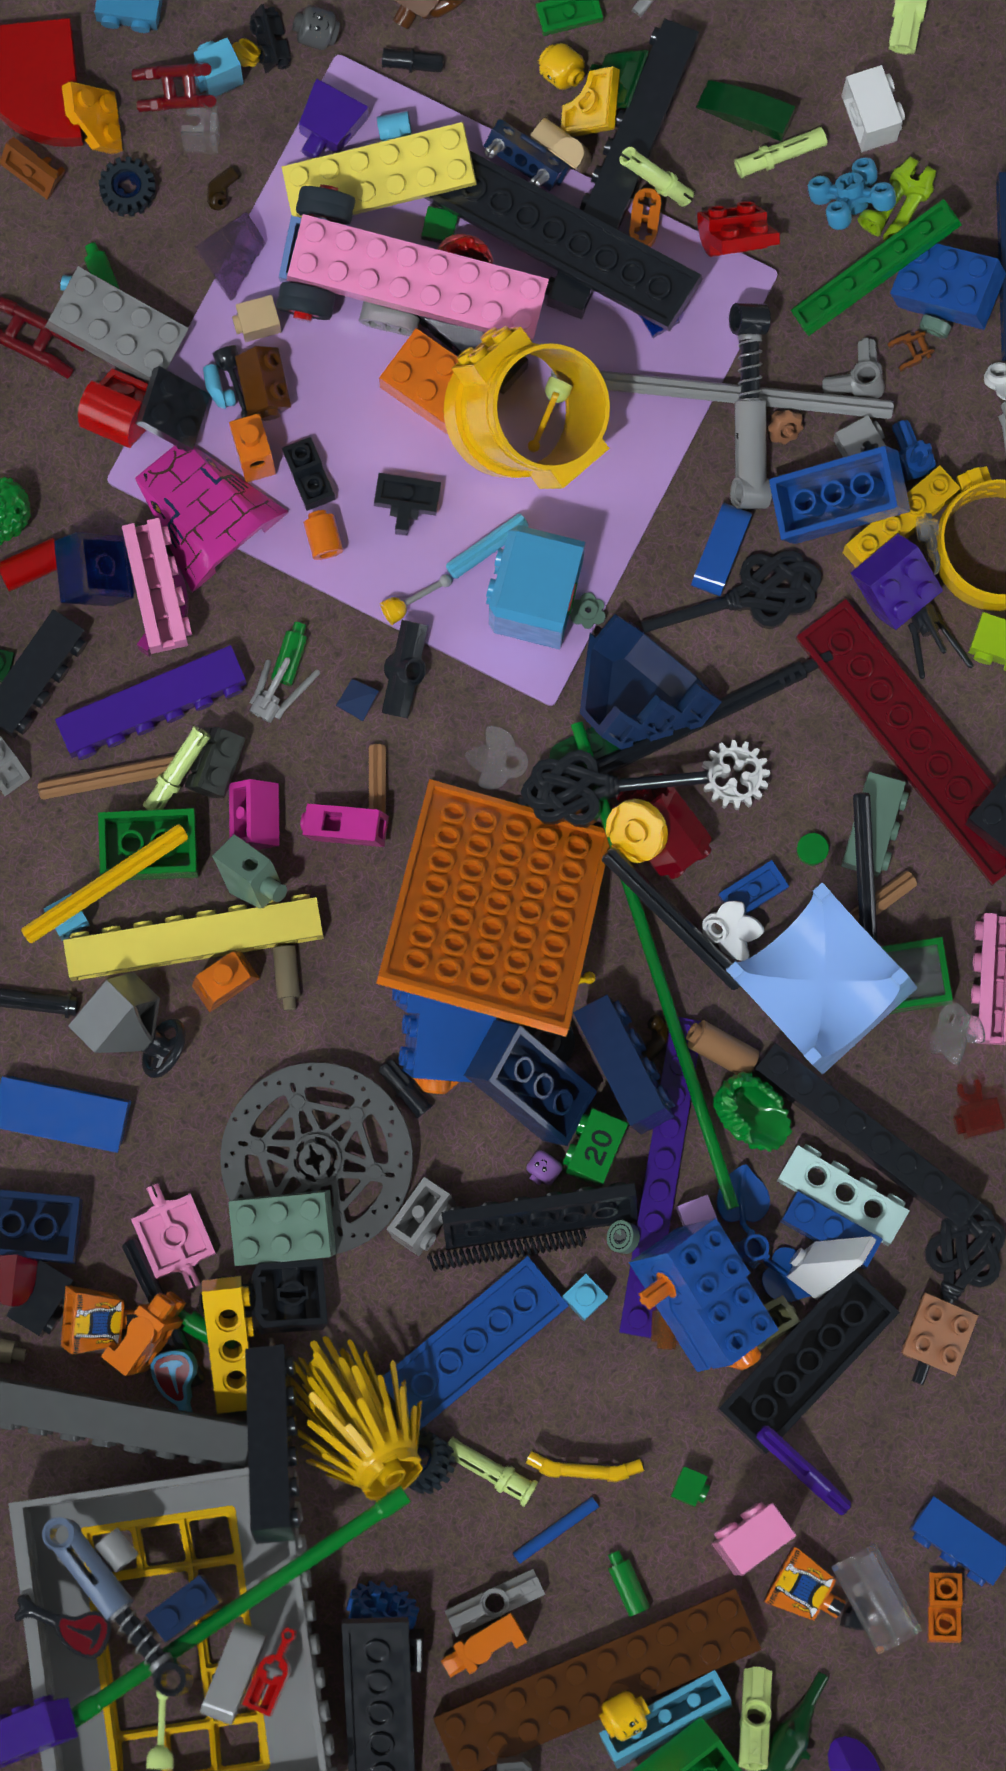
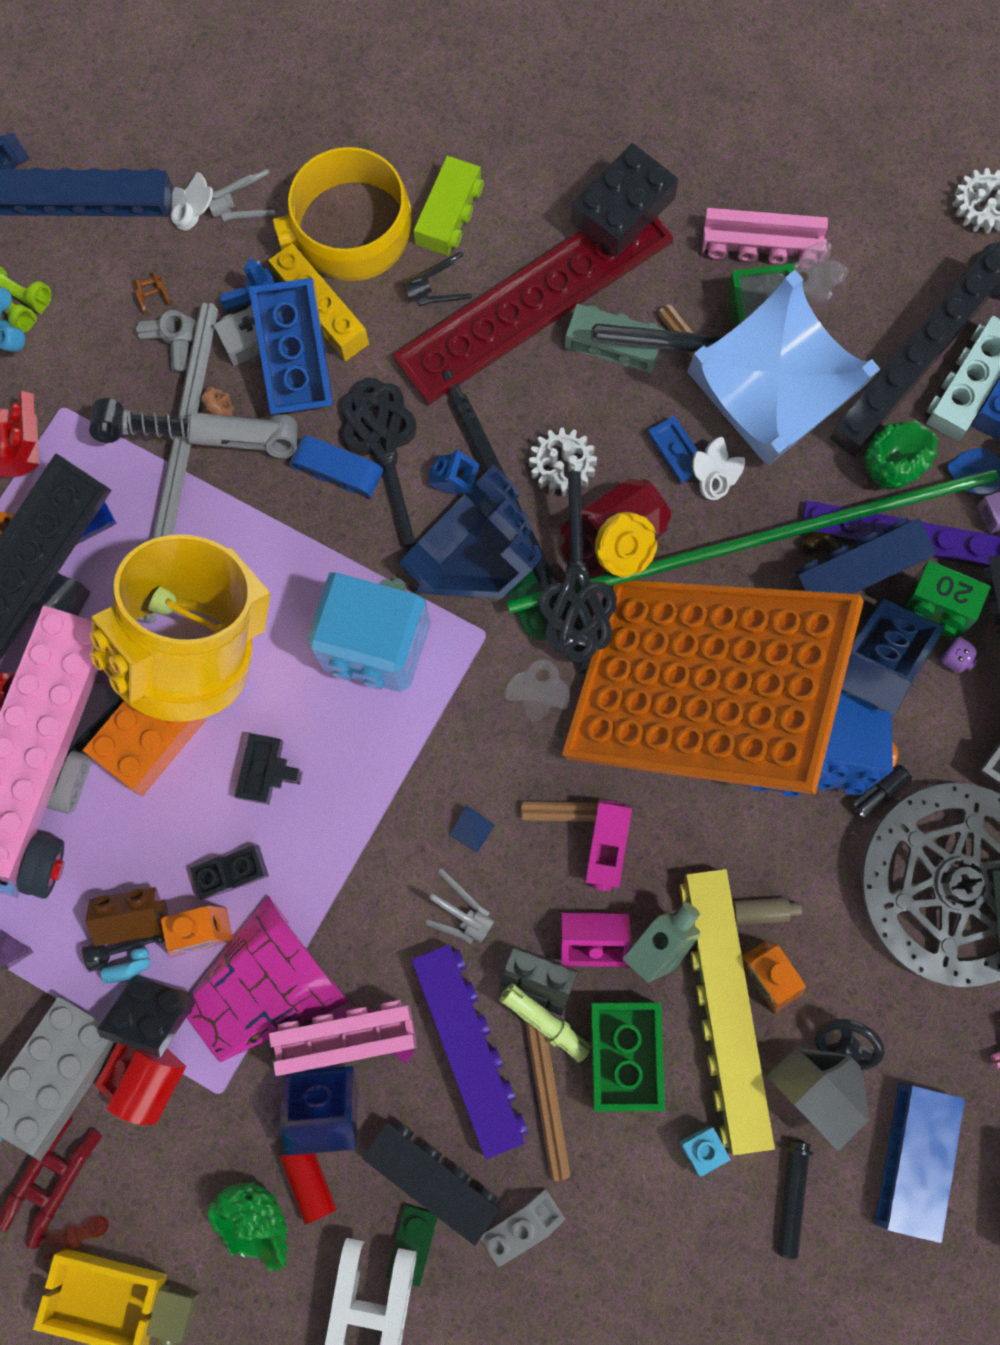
camera: 80 degrees left, 5 degrees down
(104, 883) = (678, 1107): yellow axle -> none
(256, 319) = (55, 922): tan brick -> none
(291, 647) = (418, 897): green cylinder -> none
(323, 535) = (297, 857): orange brick -> none
(395, 608) = (380, 785): hinge -> none
(404, 669) = (444, 777): black piece -> none
(483, 548) = (319, 690): medium azure axle -> none
(670, 915) = (706, 522): black axle -> none
(717, 657) = (445, 469): none -> blue brick
(722, 1048) = (838, 479): medium nougat brick -> none
(812, 849) = (635, 396): green tile -> none
(876, 267) = (66, 309): green tile -> none
(896, 581) = (380, 302): dark purple brick -> none
(927, 532) = (344, 268): clear plate -> none
(934, 326) = (130, 268): sand green tile -> none
(950, 285) = (89, 247): blue brick -> none
(979, 1116) = (894, 256): clear red brick -> none

